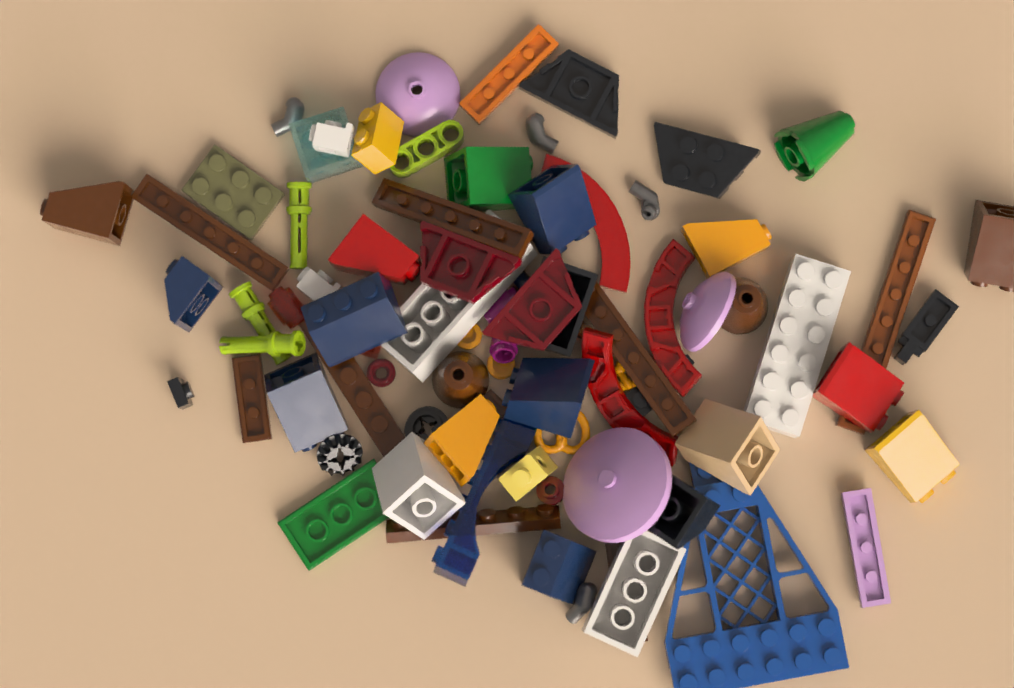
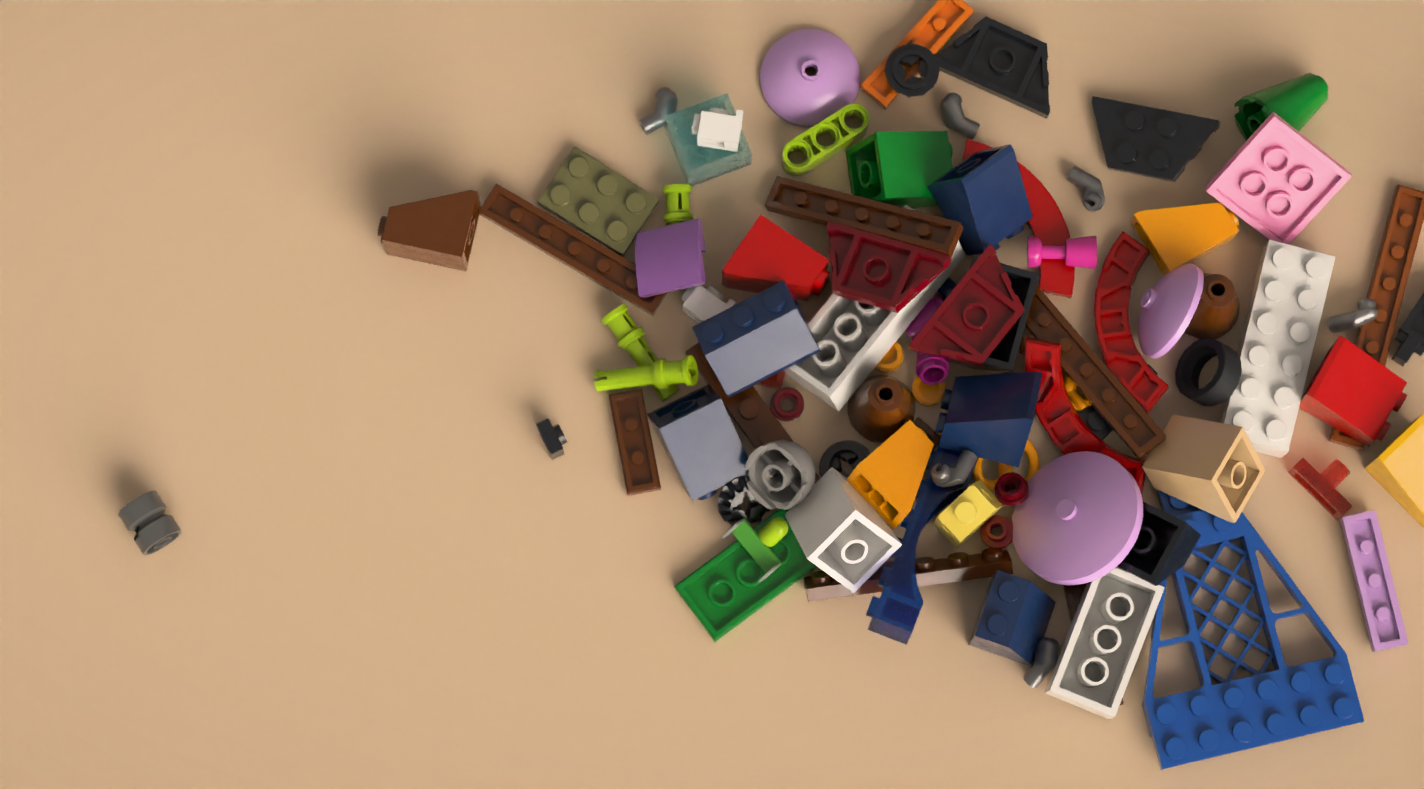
camera: 10 degrees left, 5 degrees down
(188, 292) = (562, 313): dark blue slope -> none
(286, 306) = (671, 332): clear red brick -> none
(287, 245) = (670, 258): none -> medium lavender slope
(349, 492) = (758, 544): none -> piece
(368, 435) = (780, 474): none -> light grey cylinder
(377, 138) = (769, 128): yellow brick -> none
(502, 80) = (908, 56): none -> black gear
(516, 443) = (954, 475): none -> flat silver arm
(564, 448) = (1008, 482): none -> dark red plate
(632, 255) = (1076, 252): none -> dark pink piece
(750, 371) = (1224, 380): none -> black tyre
(806, 203) = (1278, 180): none -> bright pink plate
(828, 464) = (1323, 485): none -> clear red tile
(860, 325) = (1351, 320): none -> flat silver arm

